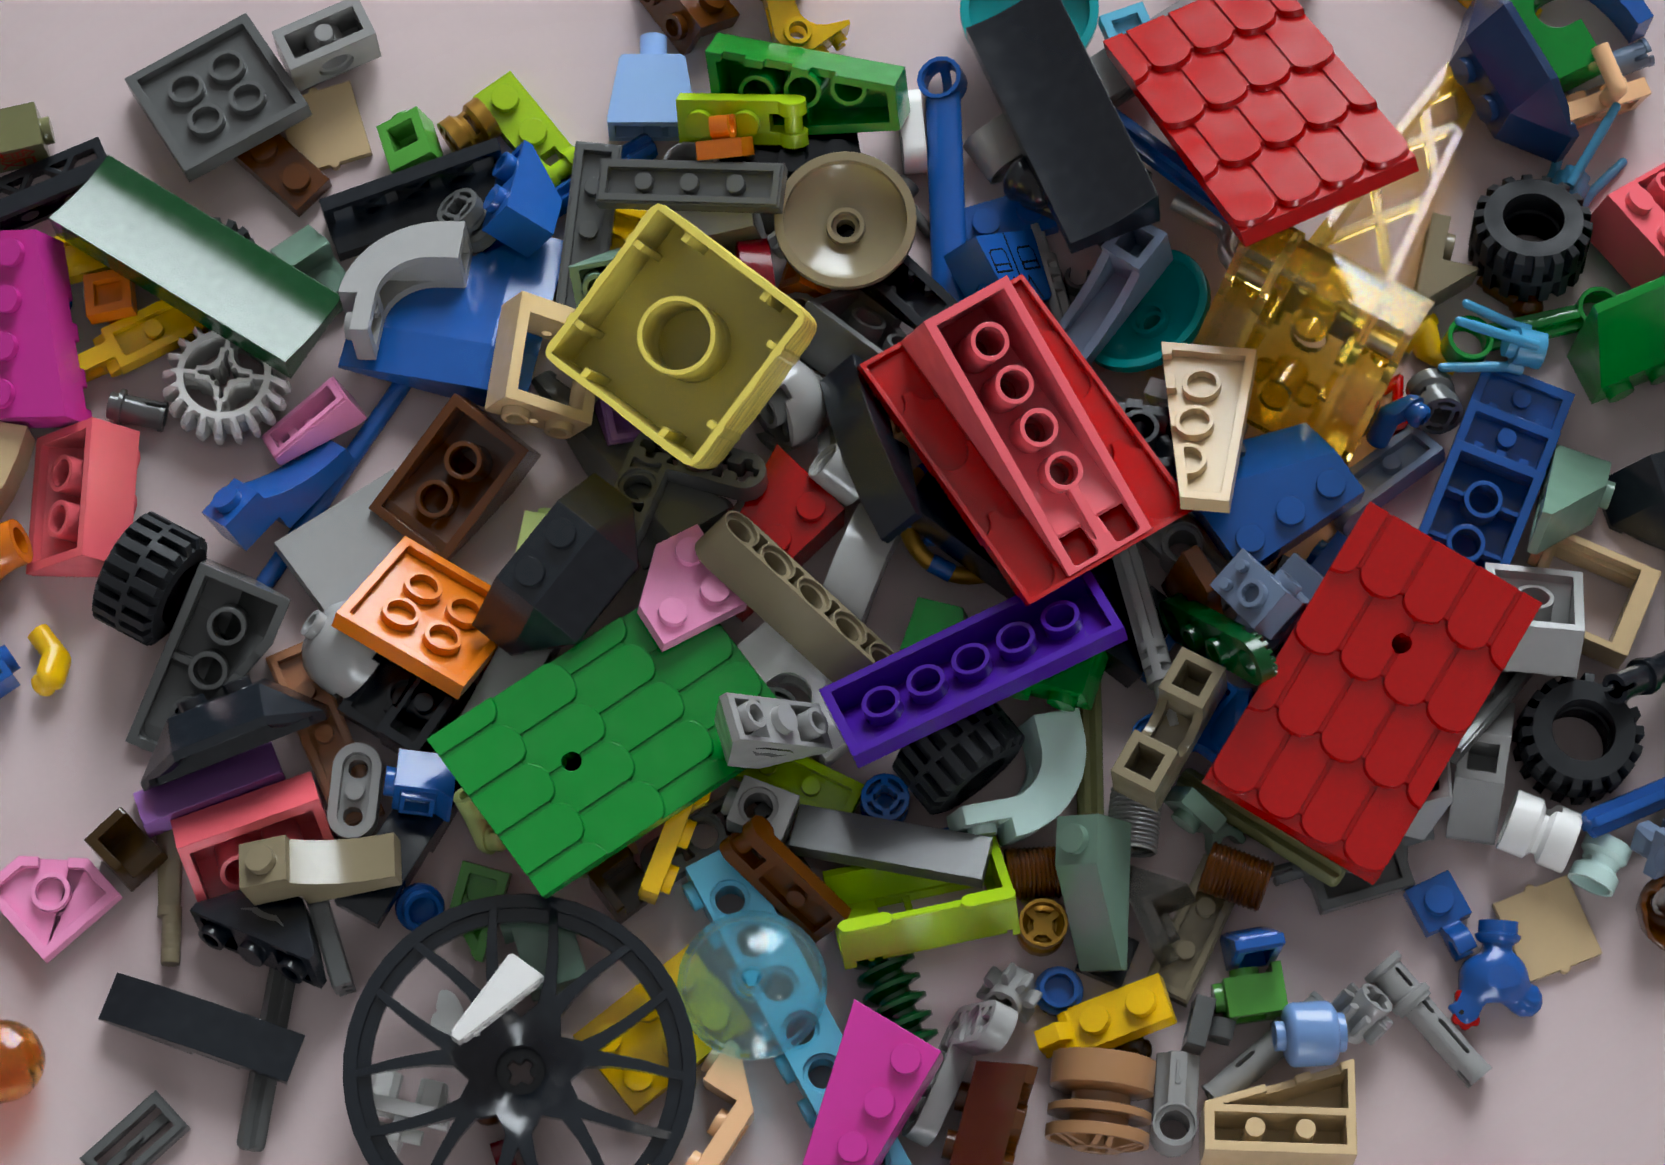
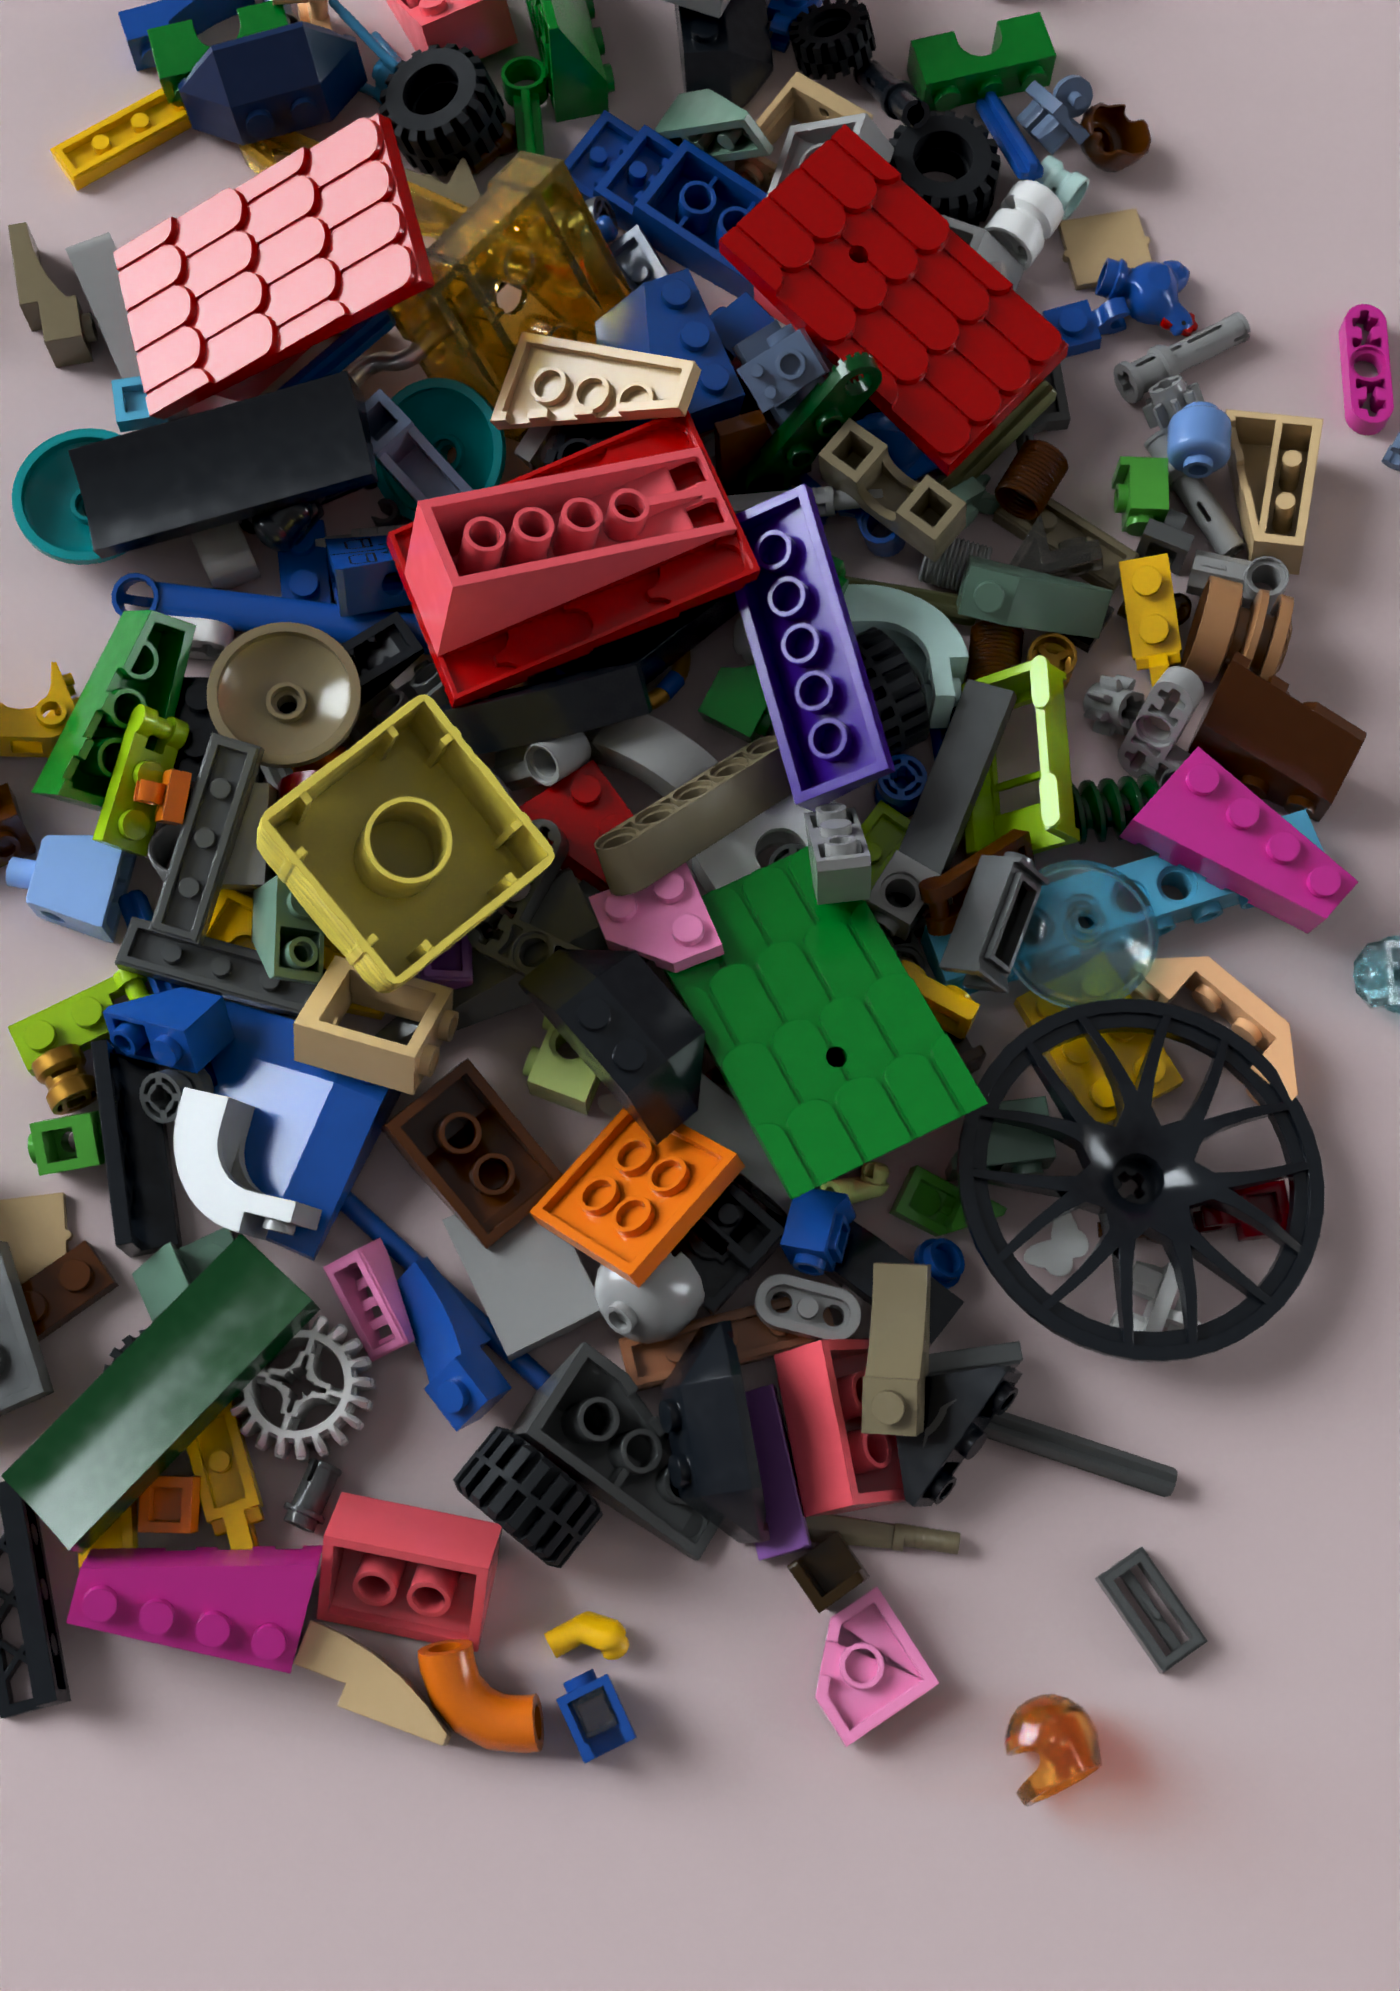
camera: 80 degrees left, 0 degrees up
(201, 1027) = (1039, 1516): black slope -> none
(503, 991) = (1080, 1174): white slope -> none
(738, 891) = (993, 921): none -> dark grey window
(1059, 988) = (1110, 660): blue plate -> none
(1251, 947) = (1098, 480): blue slope -> none
(1519, 343) = (550, 136): dark azure plant -> none

